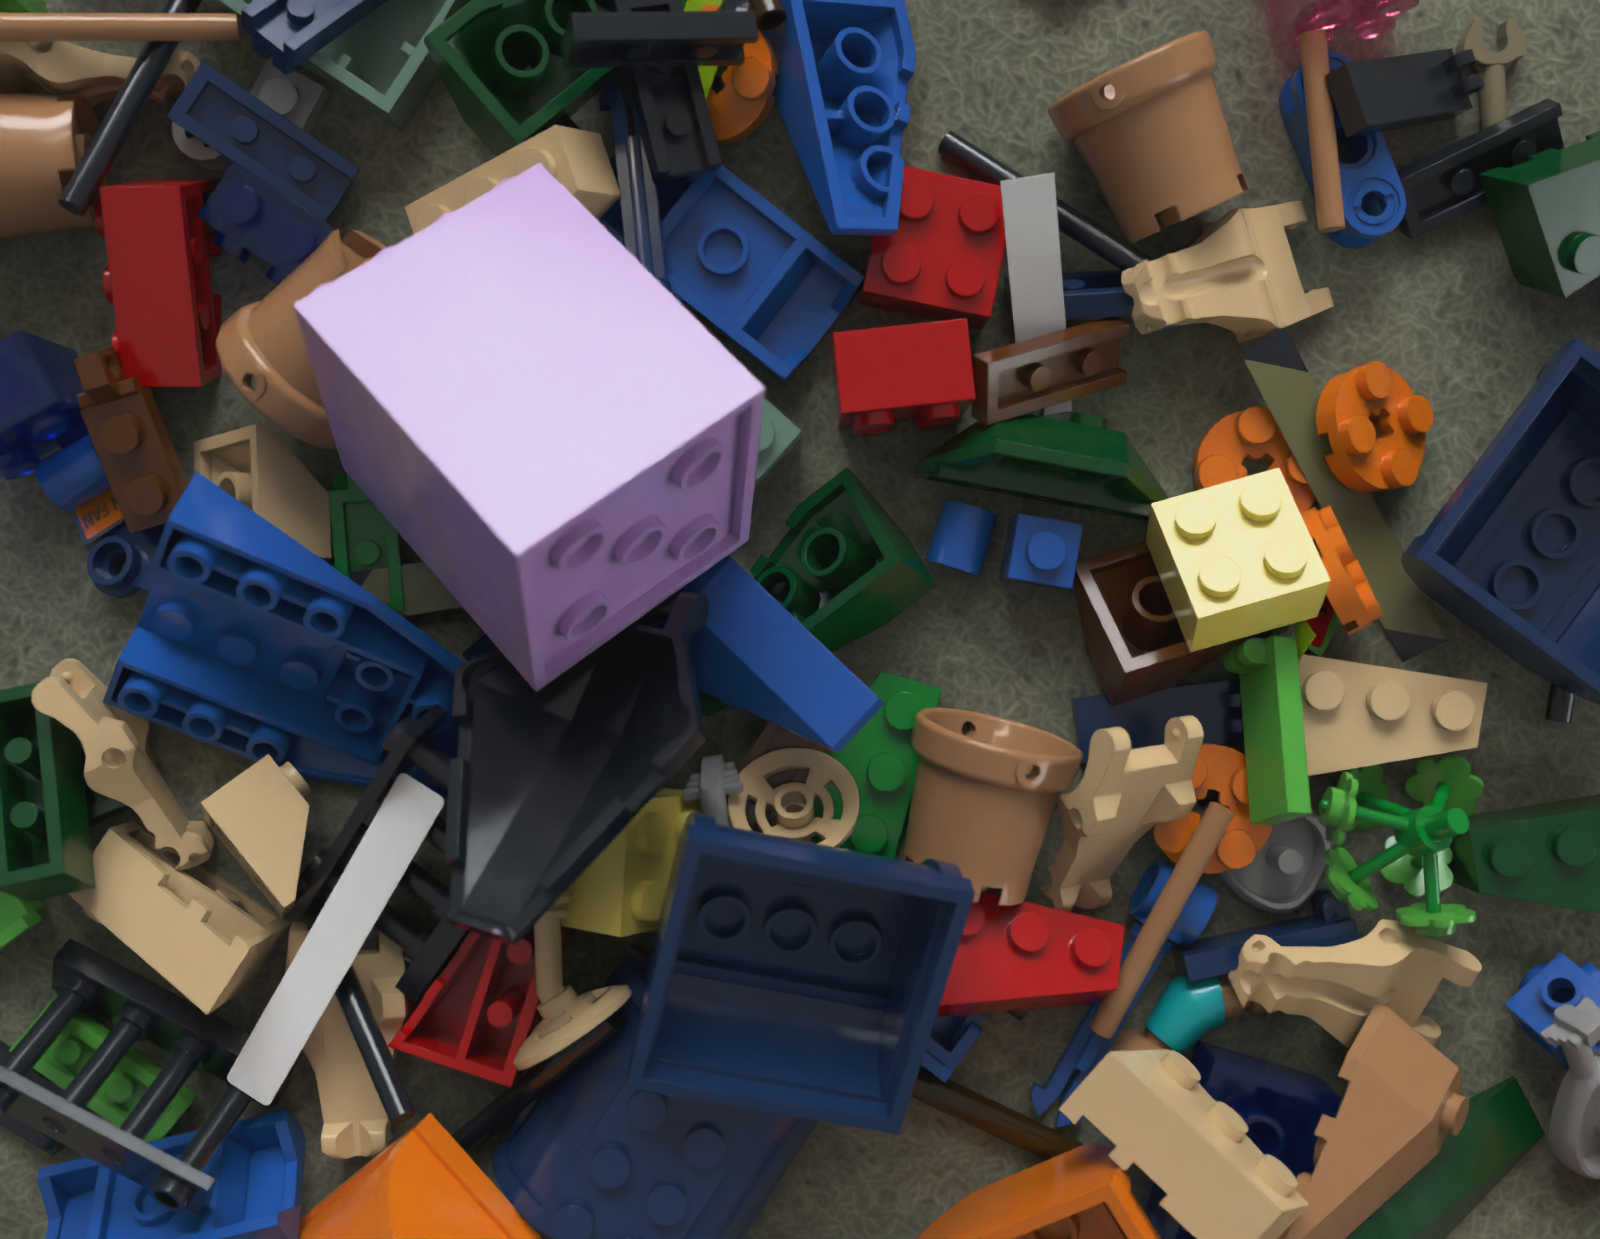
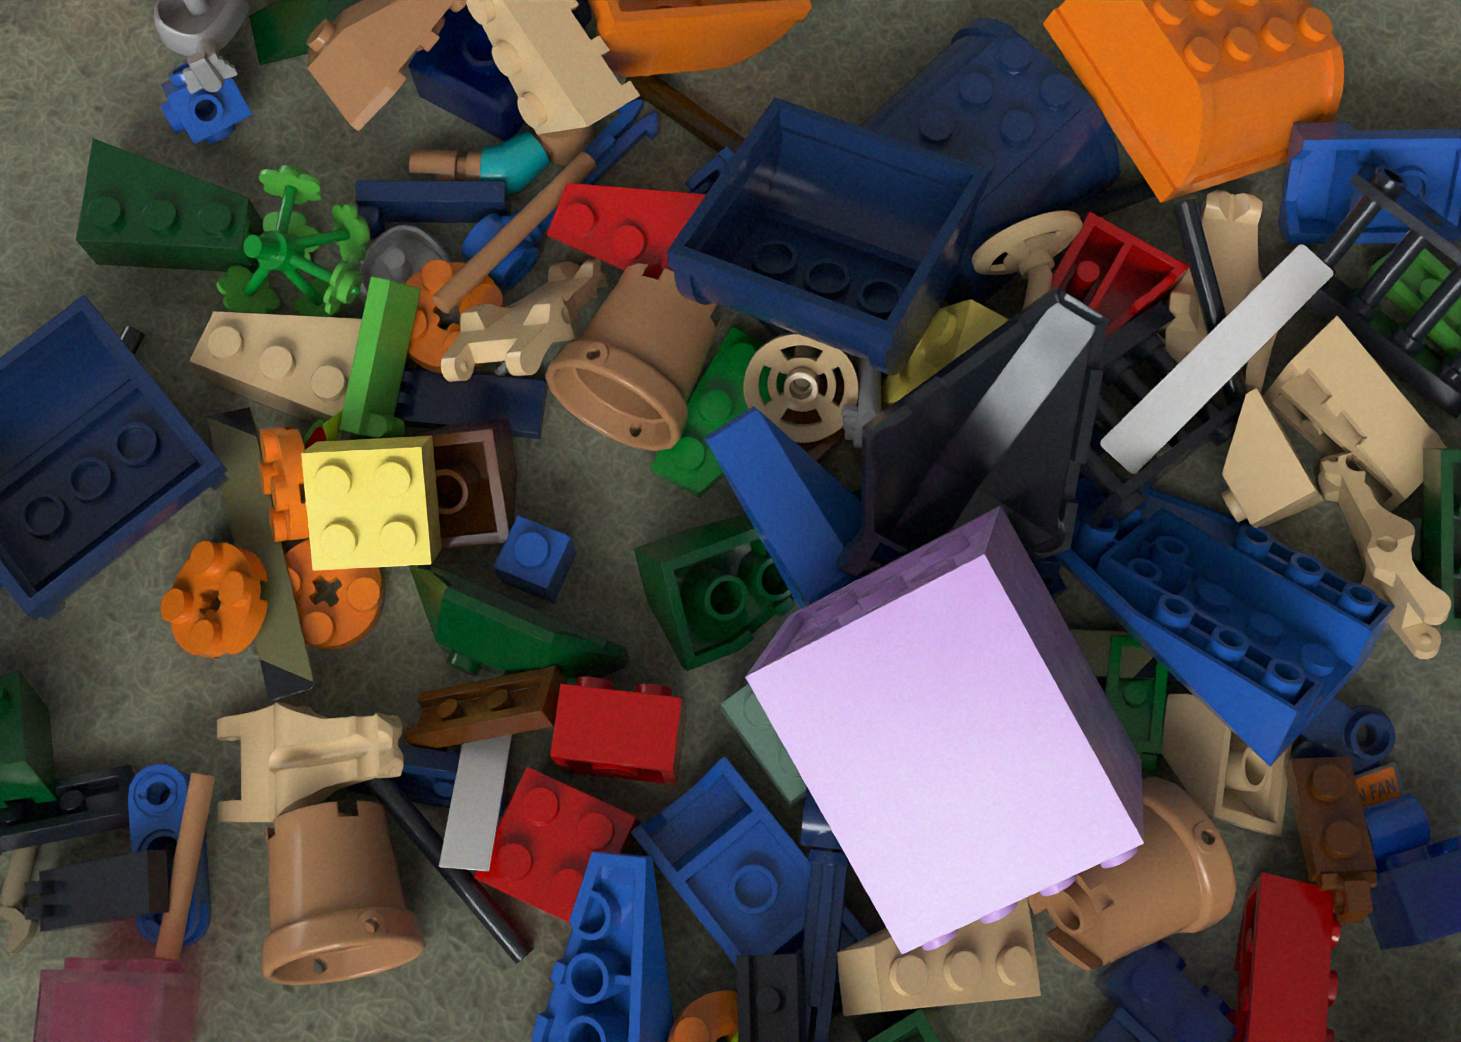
camera: 160 degrees left, 15 degrees down
(961, 537) = (601, 589): blue piece -> none
(1344, 981) = (378, 152): tan animal -> none

